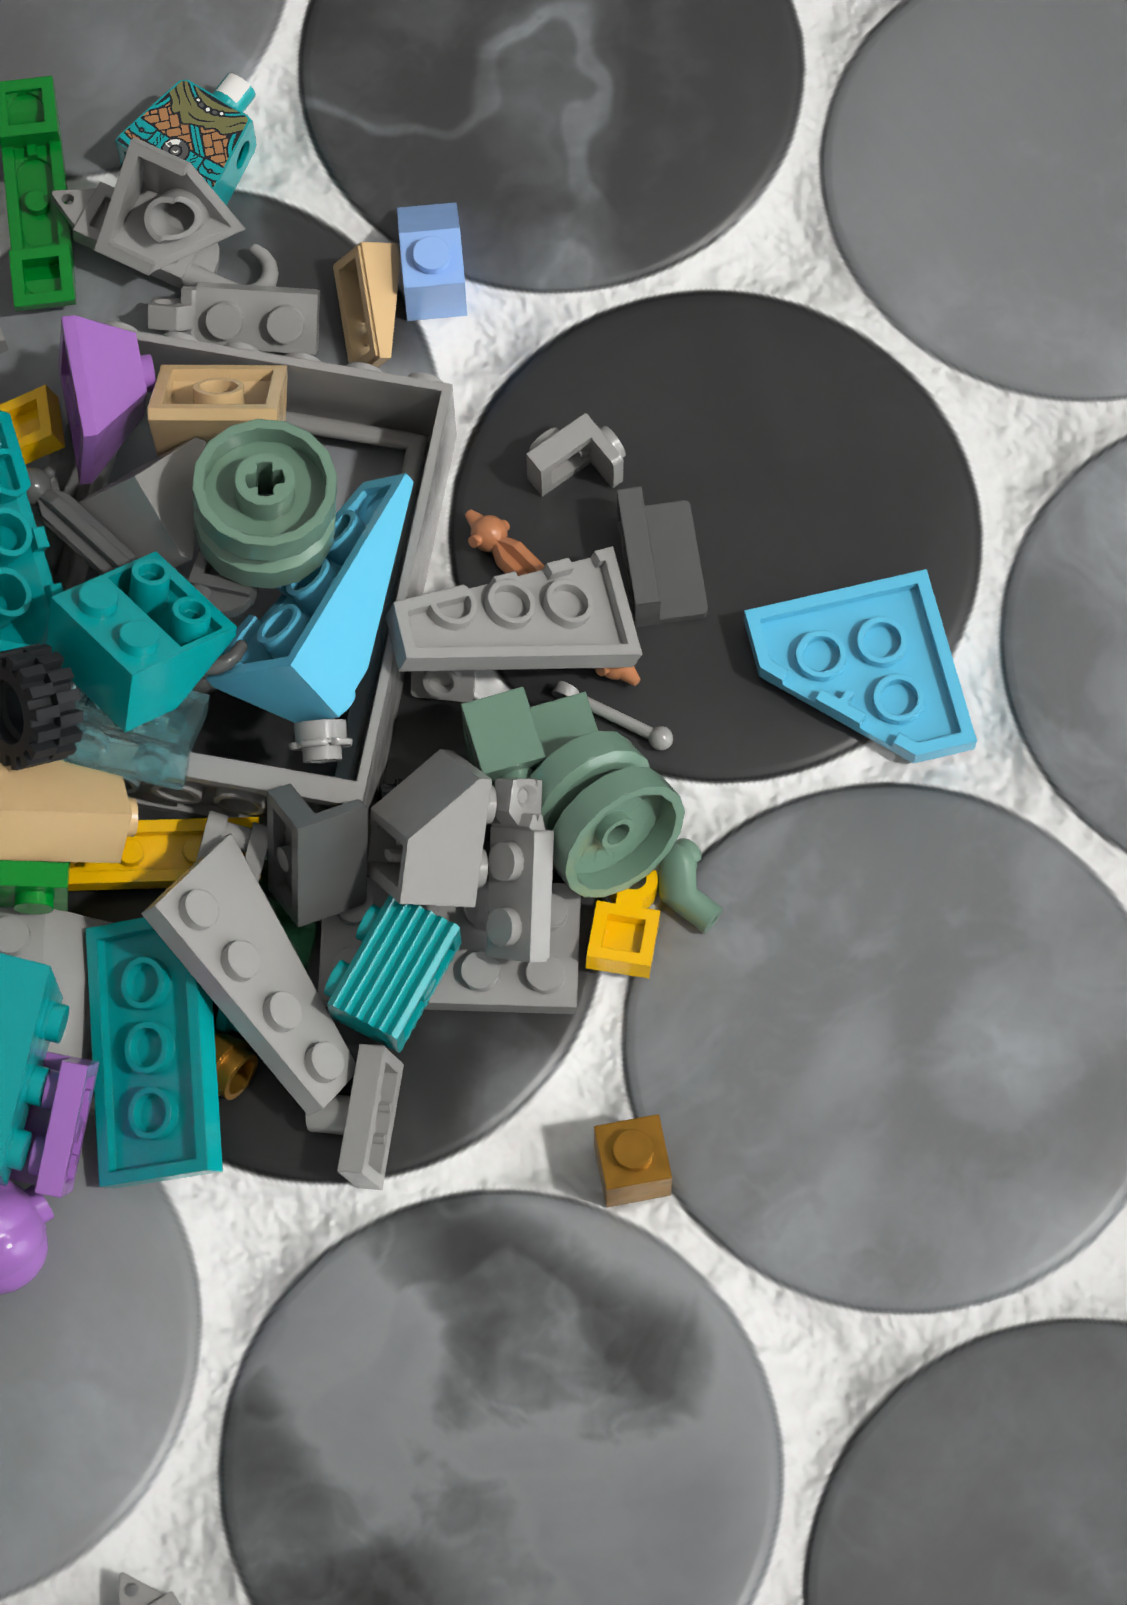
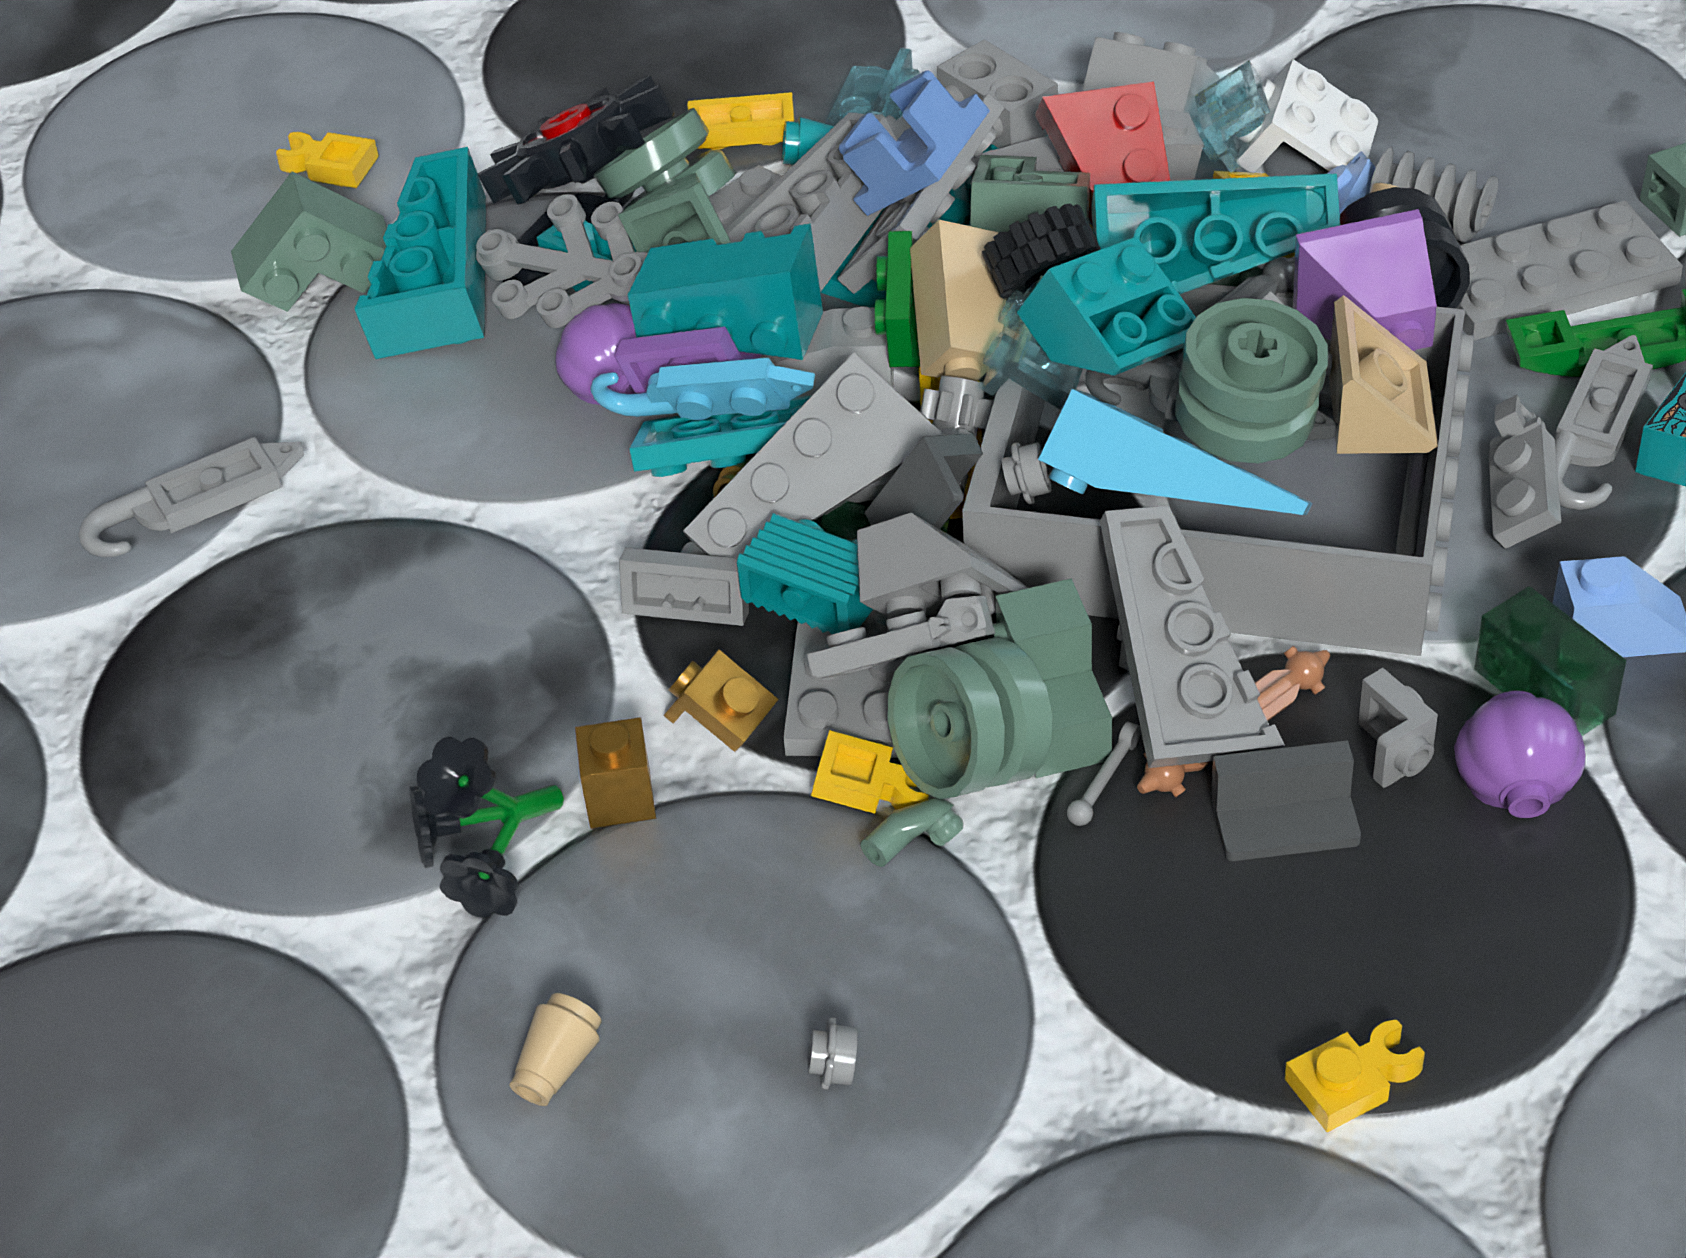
camera: 95 degrees right, 25 degrees down
(112, 1103) = (708, 390): none -> medium azure plate
(161, 211) = (1616, 389): light grey slope -> none
(165, 831) = (957, 405): none -> light grey gear
(367, 300) = (1539, 561): tan slope -> none
(503, 320) = (1545, 652): none -> clear green brick
(524, 1075) = (721, 699): none -> pearl gold bracket
(606, 357) = (1520, 753): none -> medium lavender plant
(720, 1278) = (453, 790): none -> black plant
(869, 661) = (1169, 990): medium azure plate -> none
(950, 532) = (1349, 1080): none -> yellow plate
(954, 941) = (833, 1054): none -> light grey plate
(954, 1189) = (554, 1047): none -> tan cone

